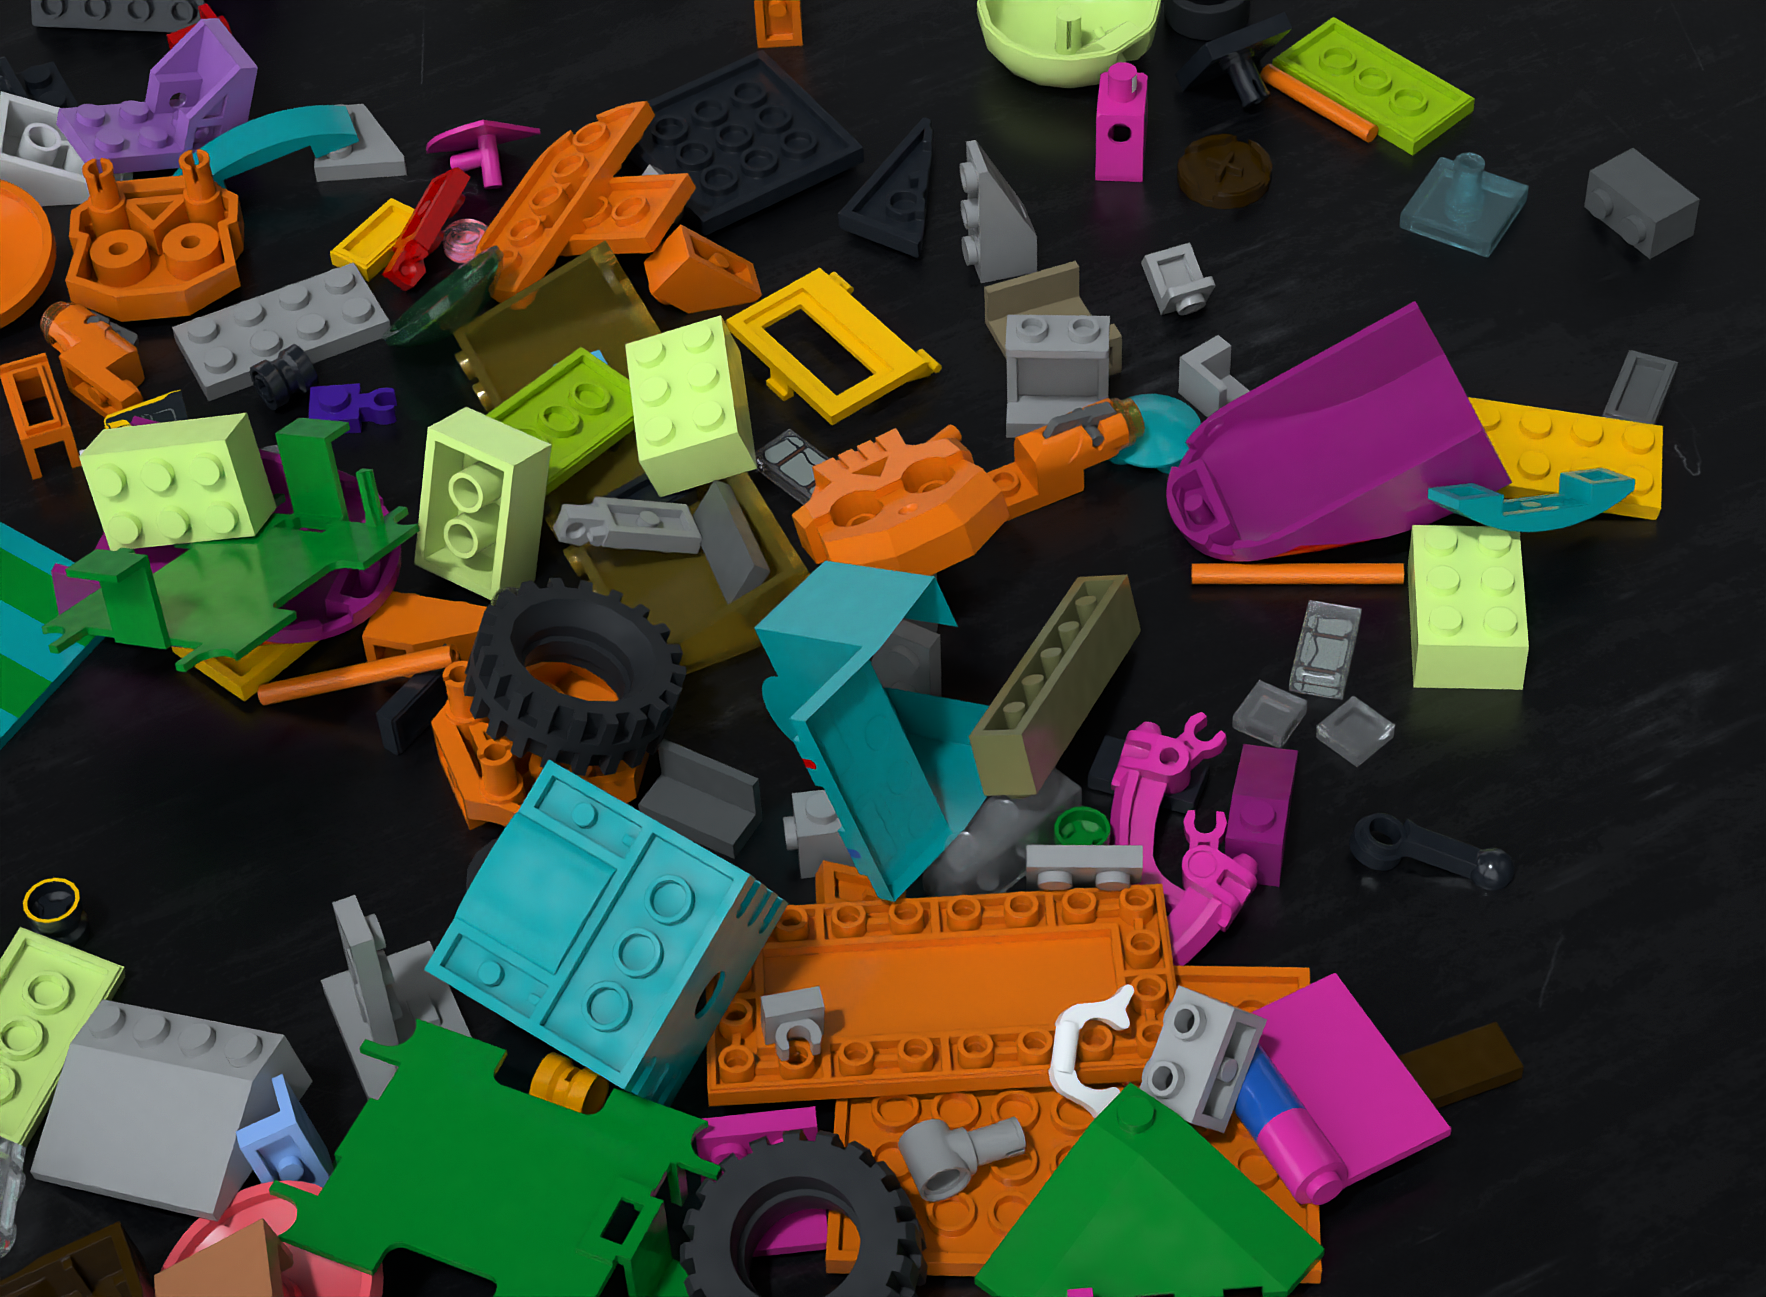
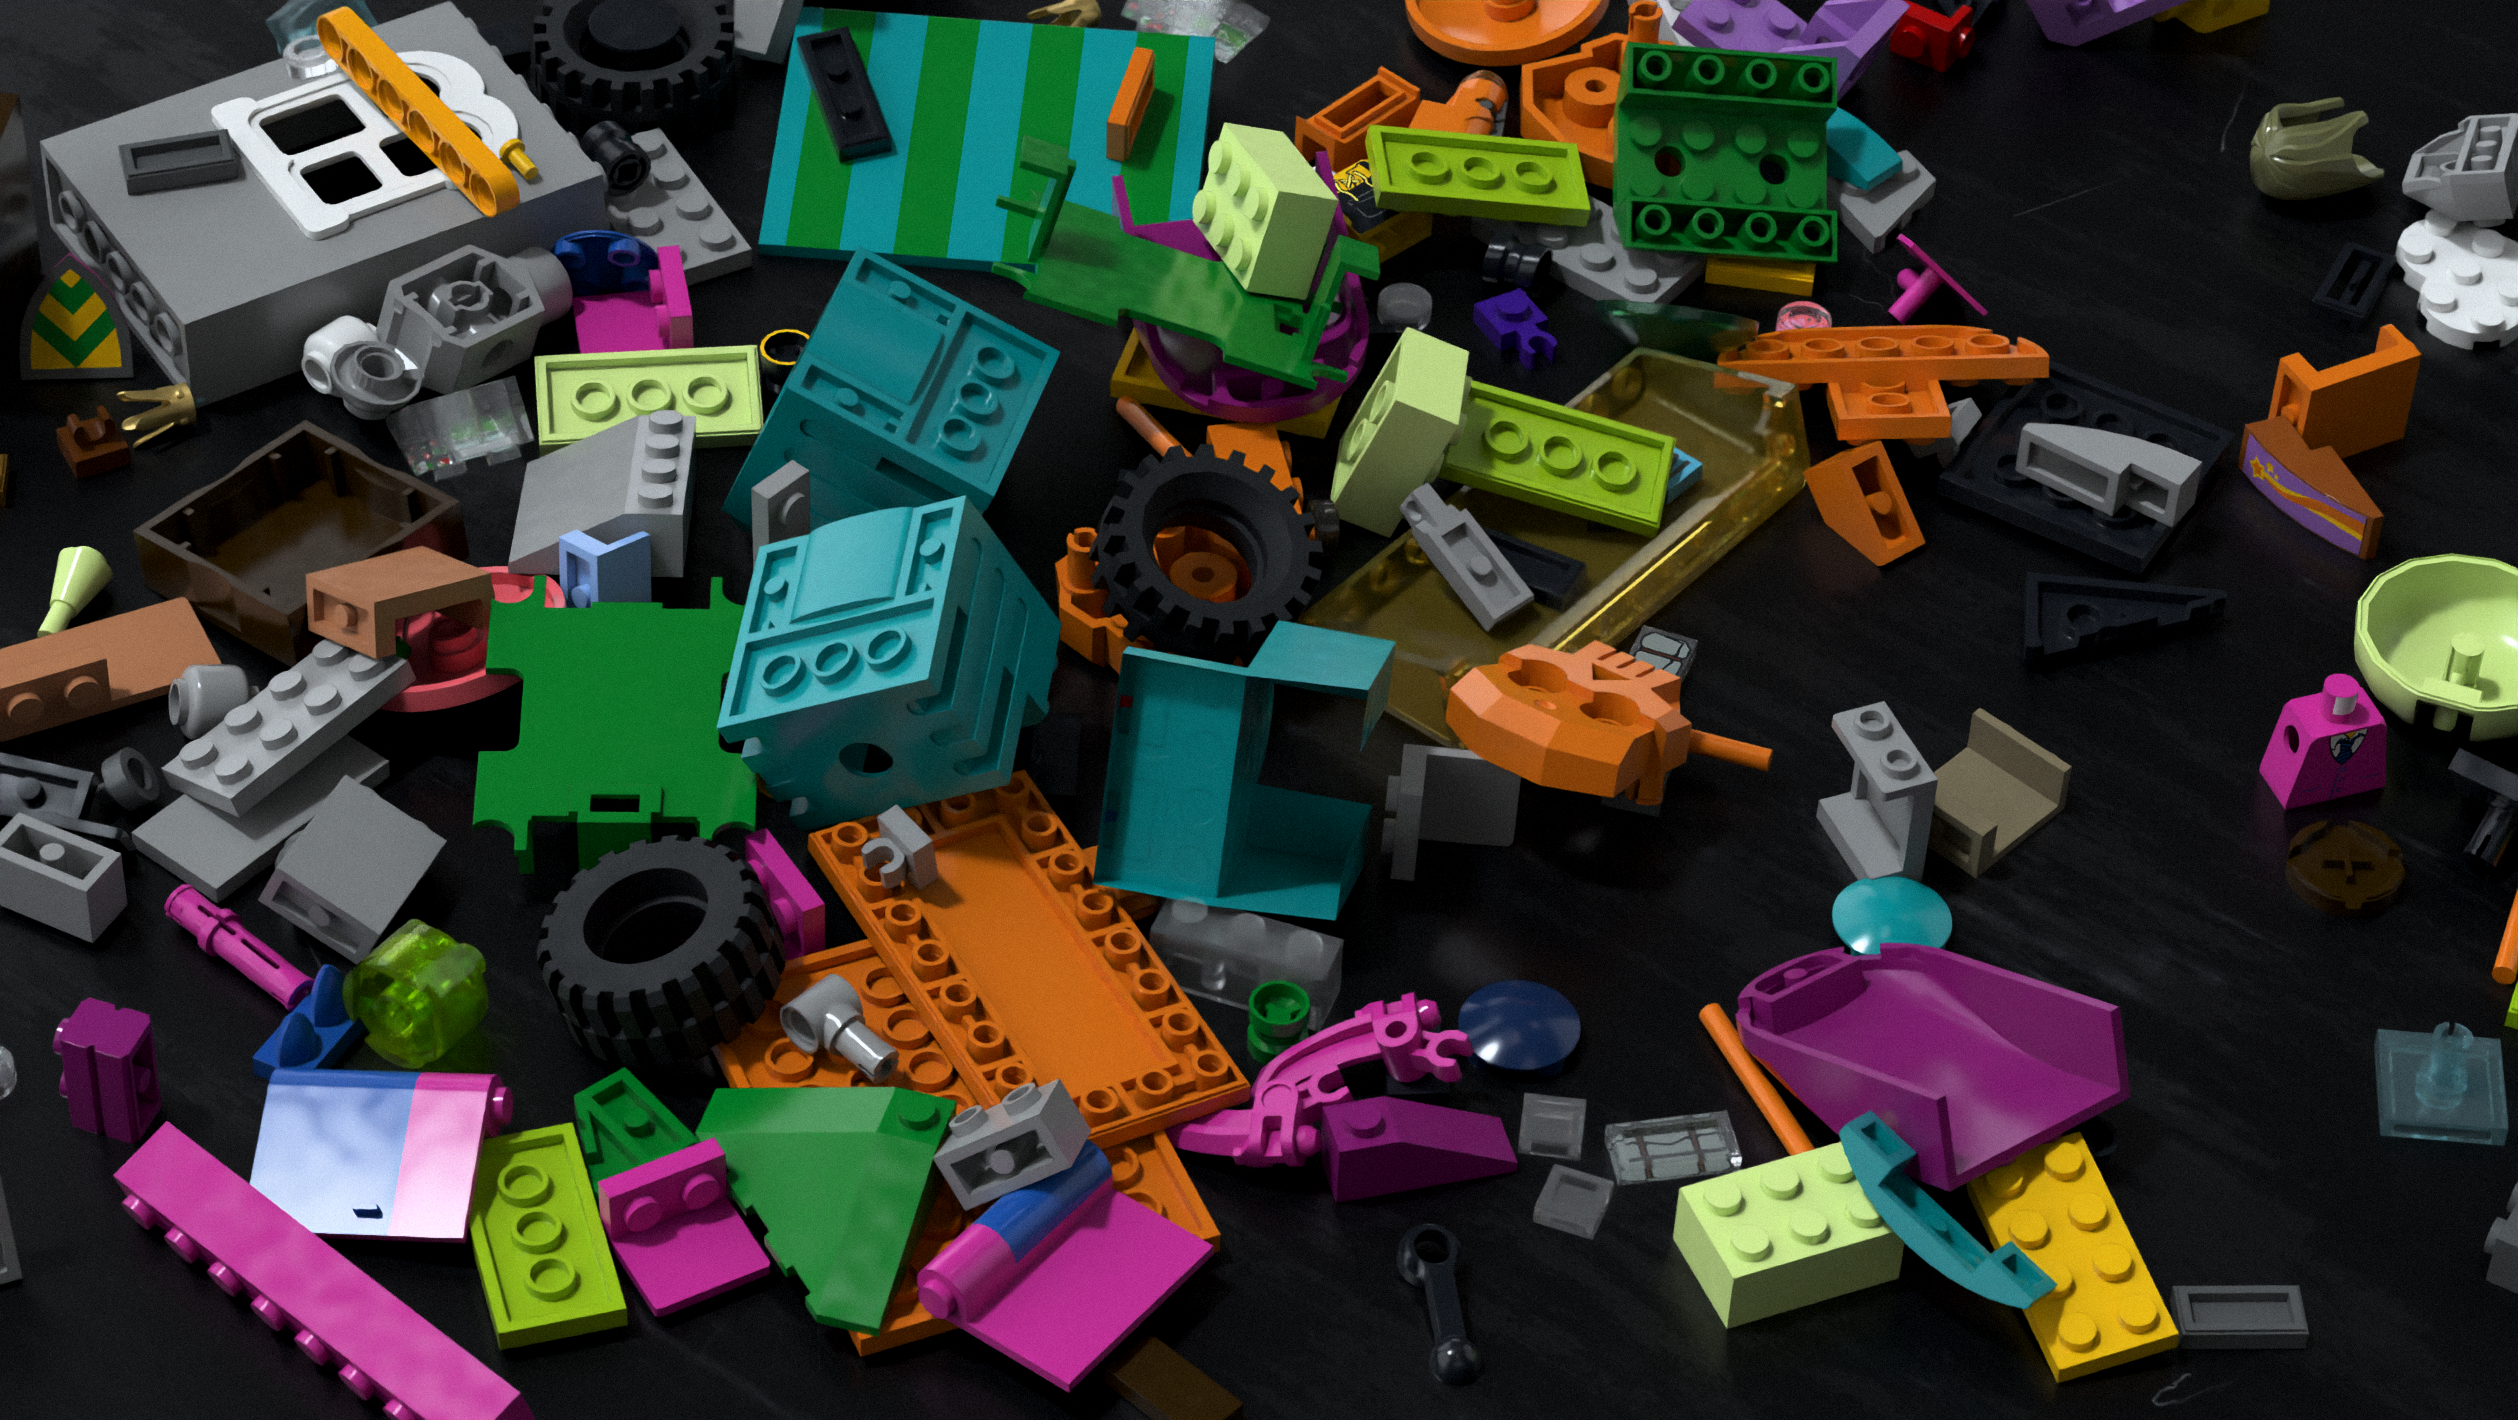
camera: 60 degrees right, 5 degrees down
(188, 352) = (1477, 176): none -> lime plate
(253, 179) = (1721, 120): none -> green slope
(280, 799) = (898, 400): none -> teal piece
(423, 229) = (1778, 284): red hinge -> none
(690, 406) = (1629, 531): yellowish green brick -> none
(729, 543) = (1499, 629): dark grey tile -> none
(779, 120) = (2110, 470): none -> light grey slope
(832, 307) = (1865, 645): yellow piece -> none
(840, 34) = (2310, 486): none -> slope
(997, 222) = (2080, 679): light grey slope -> none
(1054, 457) = (1783, 845): orange plate -> none
(1054, 686) = (1431, 912): olive brick -> none
(1068, 1026) = (992, 1045): white helmet -> none
(1083, 867) = (1205, 990): light grey wing -> none
(1153, 690) = (1520, 1027): none -> dark blue dish
(1177, 280) = (2126, 870): light grey bracket -> none
(1207, 377) = (1998, 933): light grey panel -> none

